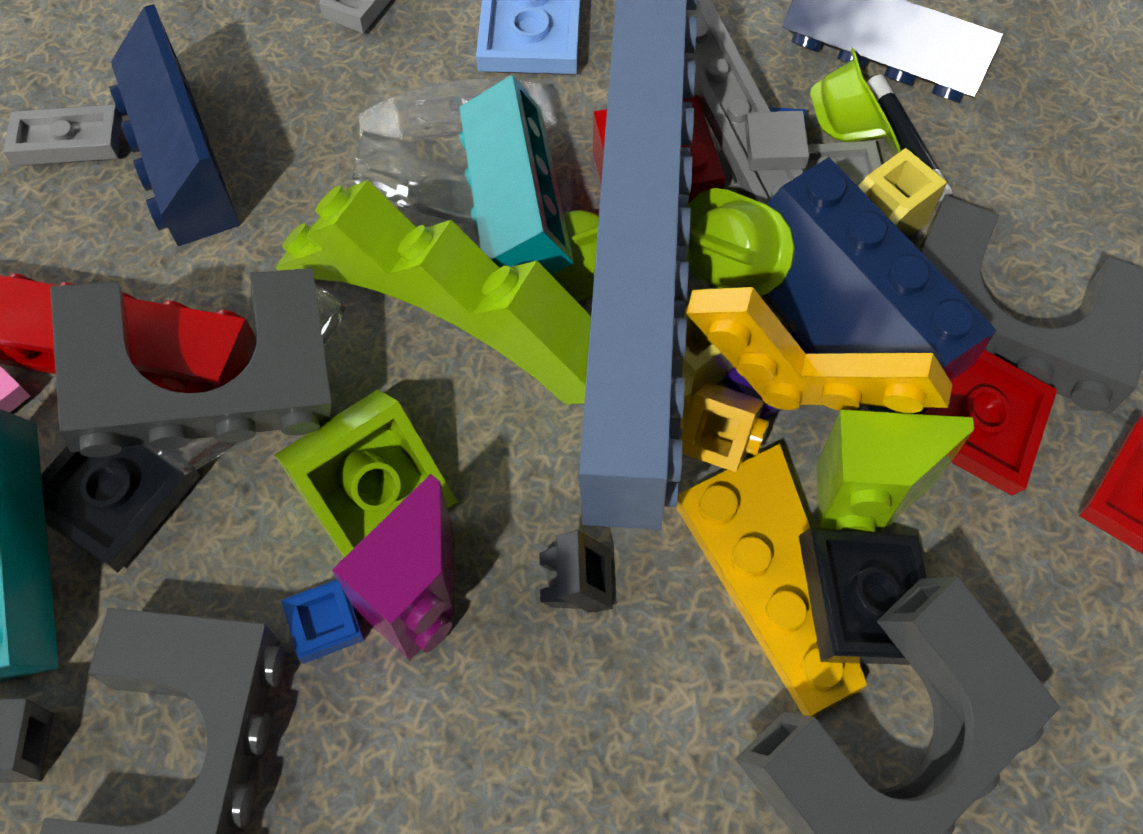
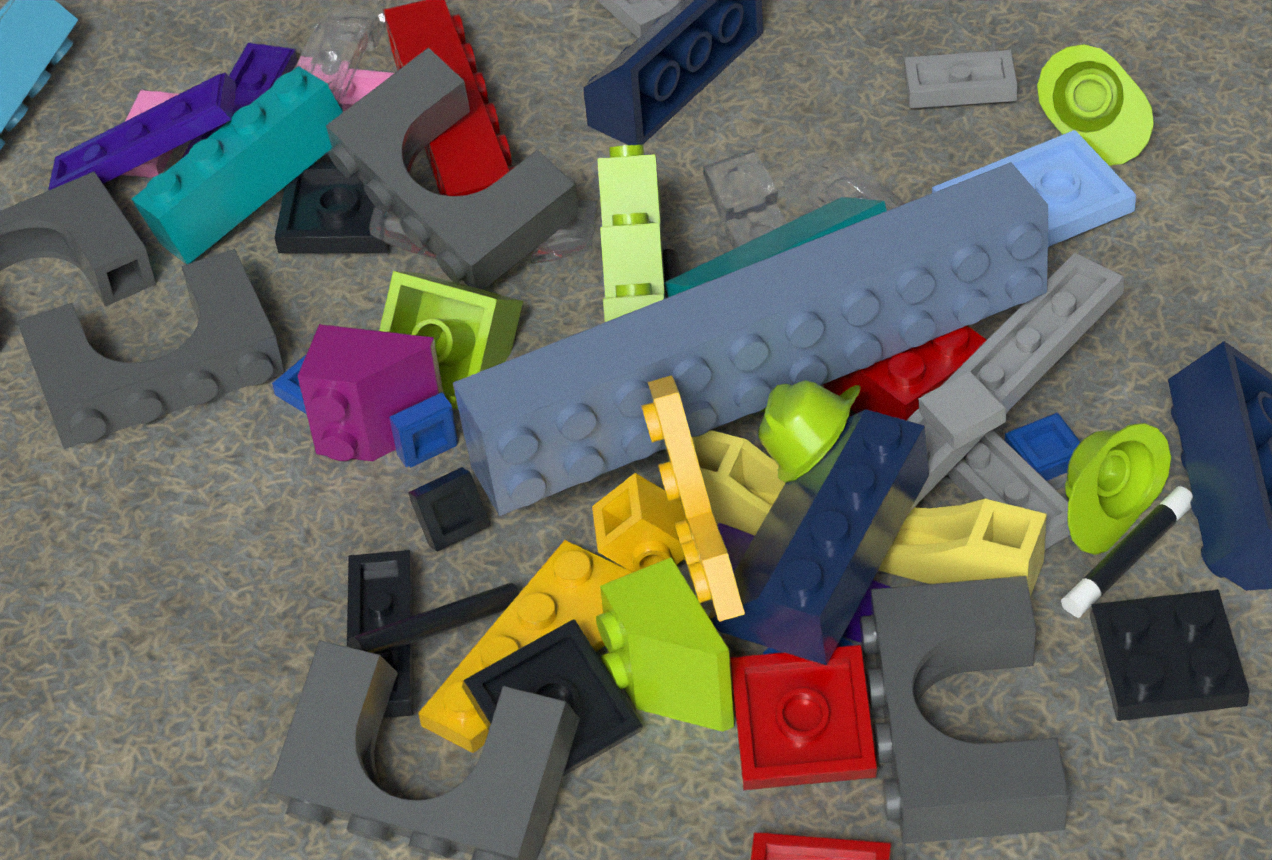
camera: 65 degrees right, 15 degrees down
(470, 547) = (424, 430): none -> blue tile
(681, 698) = (377, 596): none -> black plate
(725, 654) = (435, 620): none -> black bar
(1019, 166) = (1168, 655): none -> black plate

